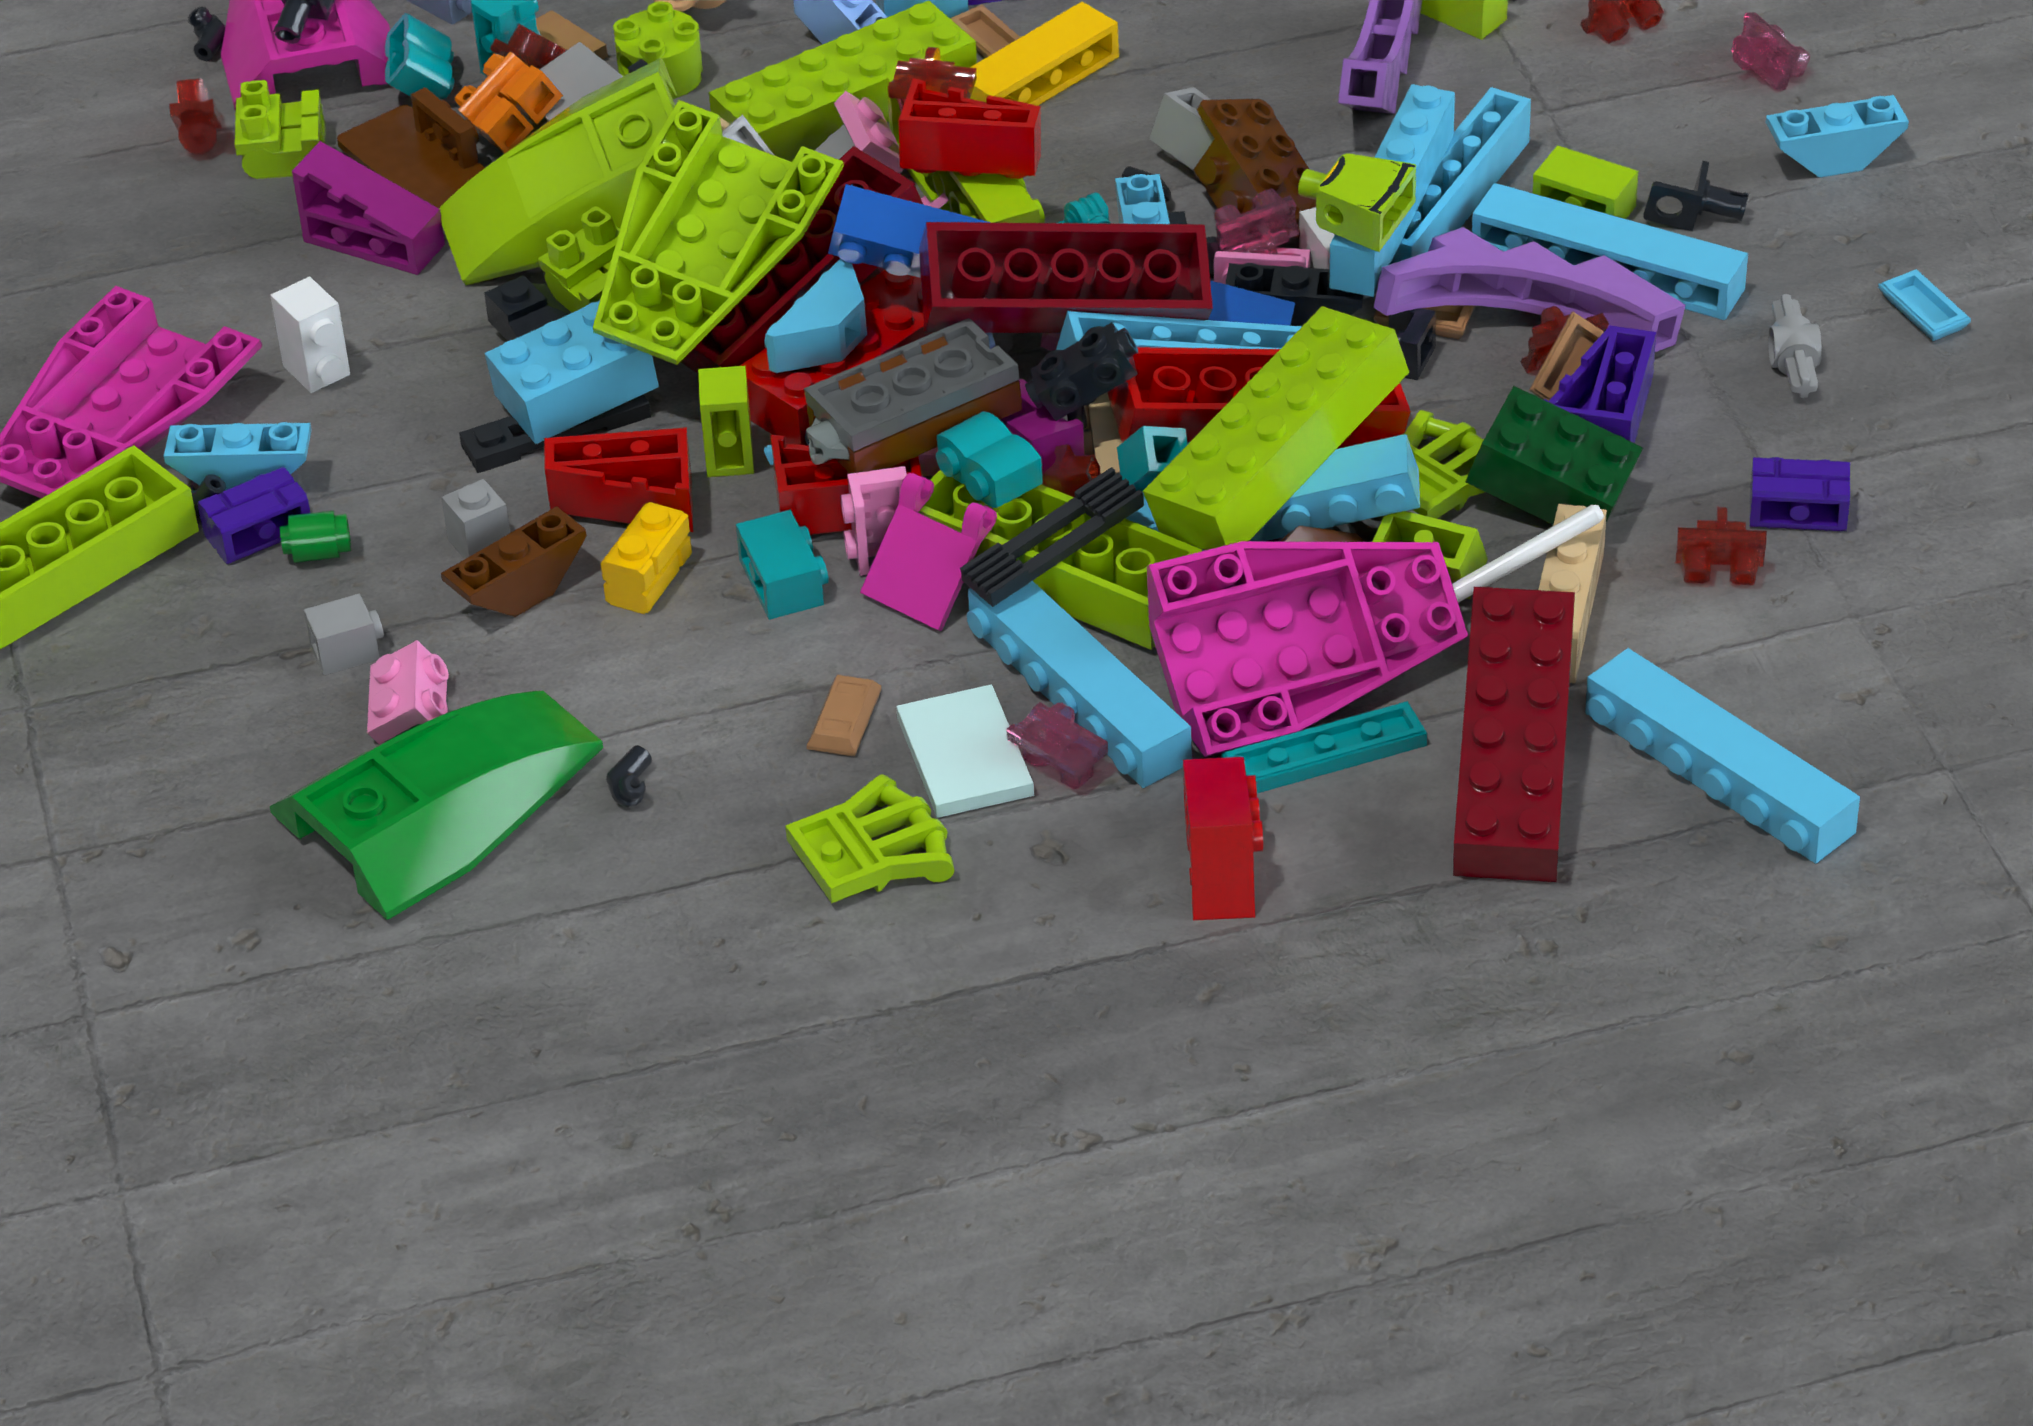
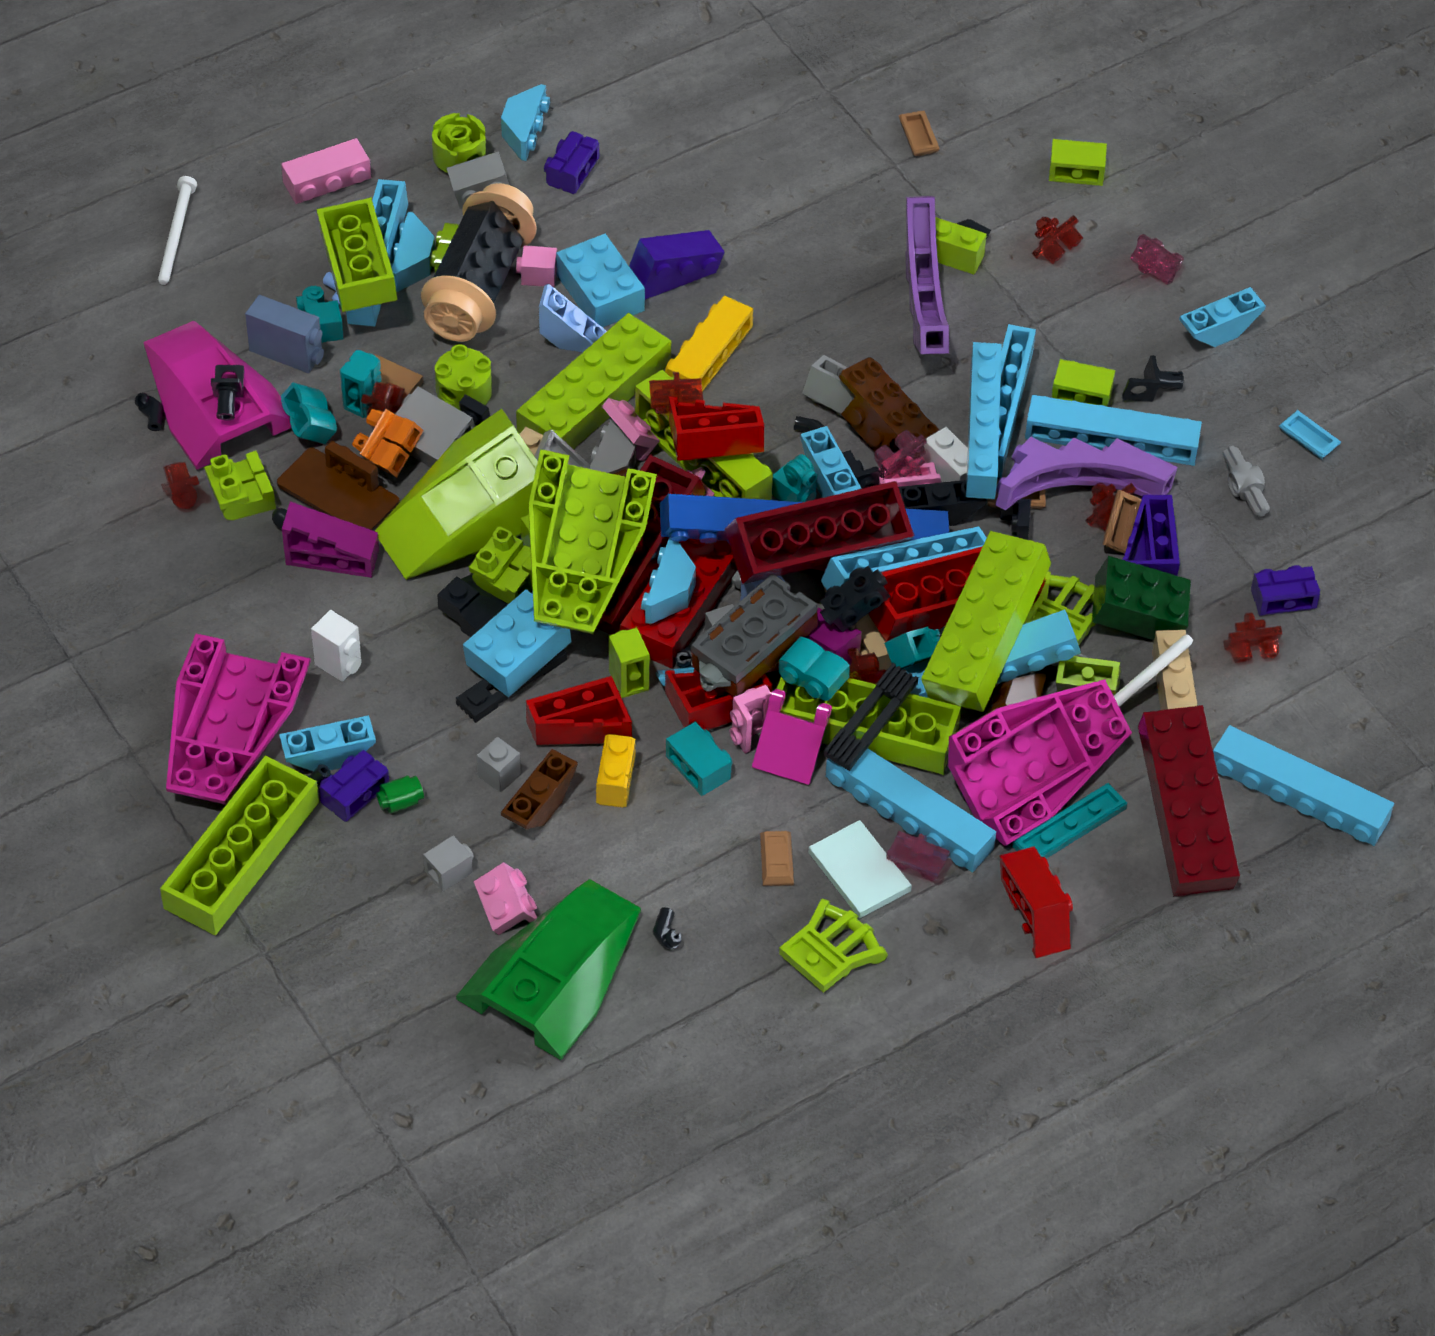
camera: 20 degrees left, 10 degrees up
(985, 29) = (666, 324): medium nougat tile -> none
(1361, 197) = (982, 442): lime torso -> none

